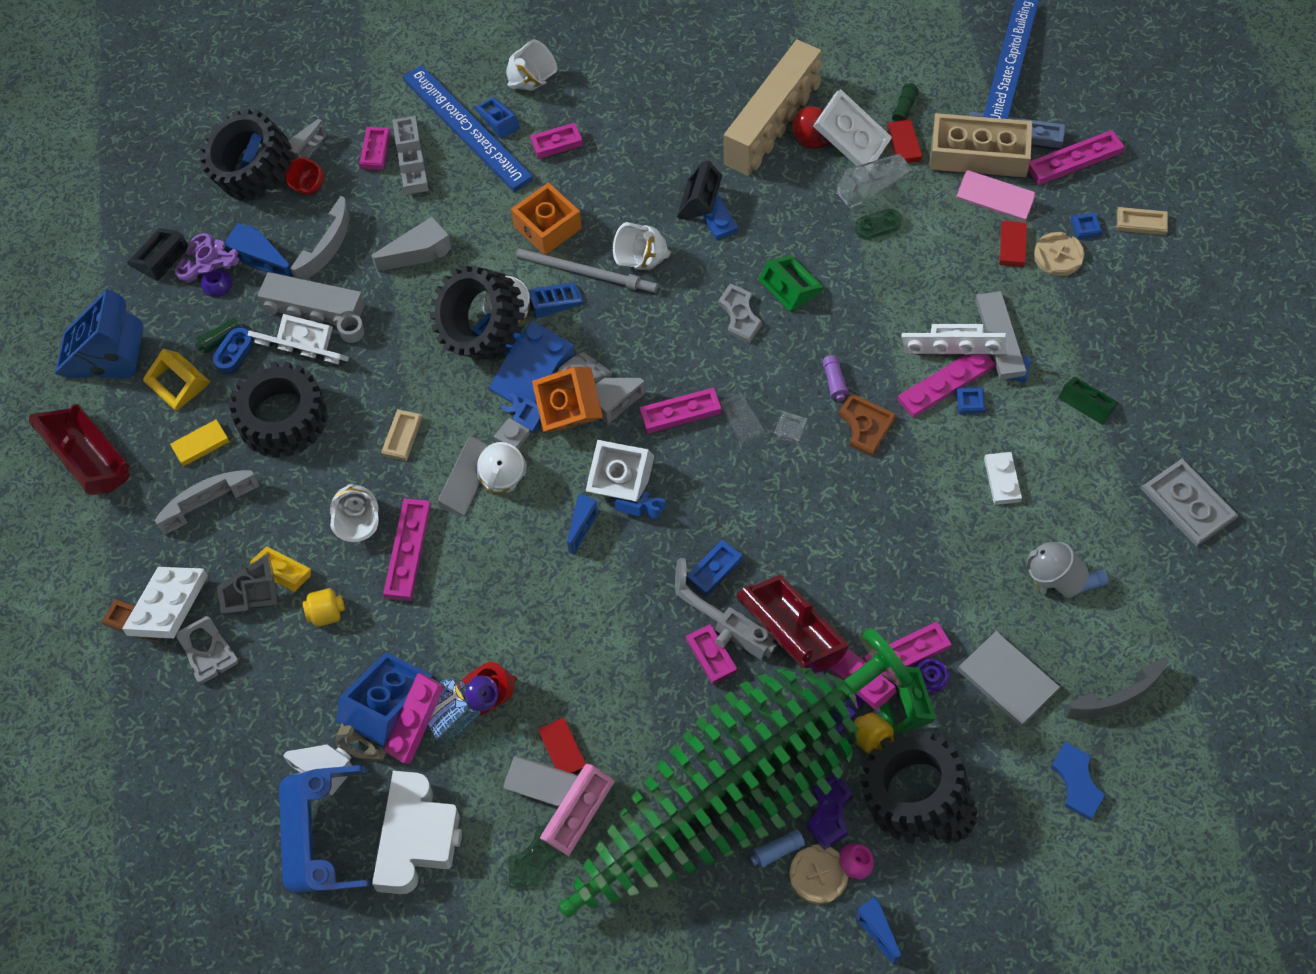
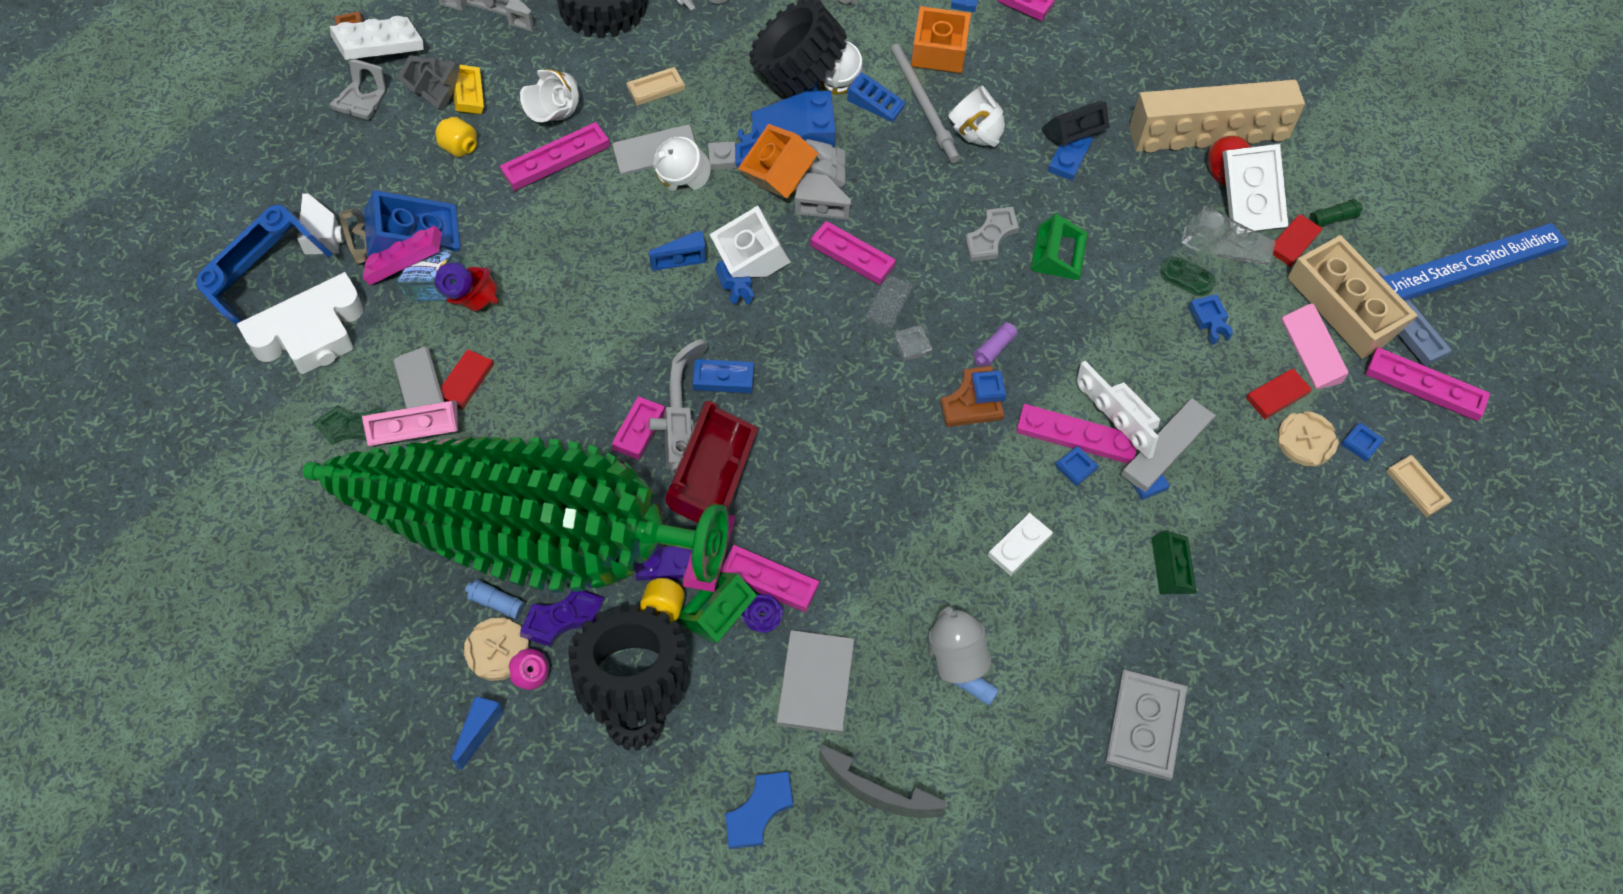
camera: 45 degrees right, 0 degrees up
(868, 406) = (988, 386): none -> blue tile
(922, 233) = (1212, 315): none -> blue plate

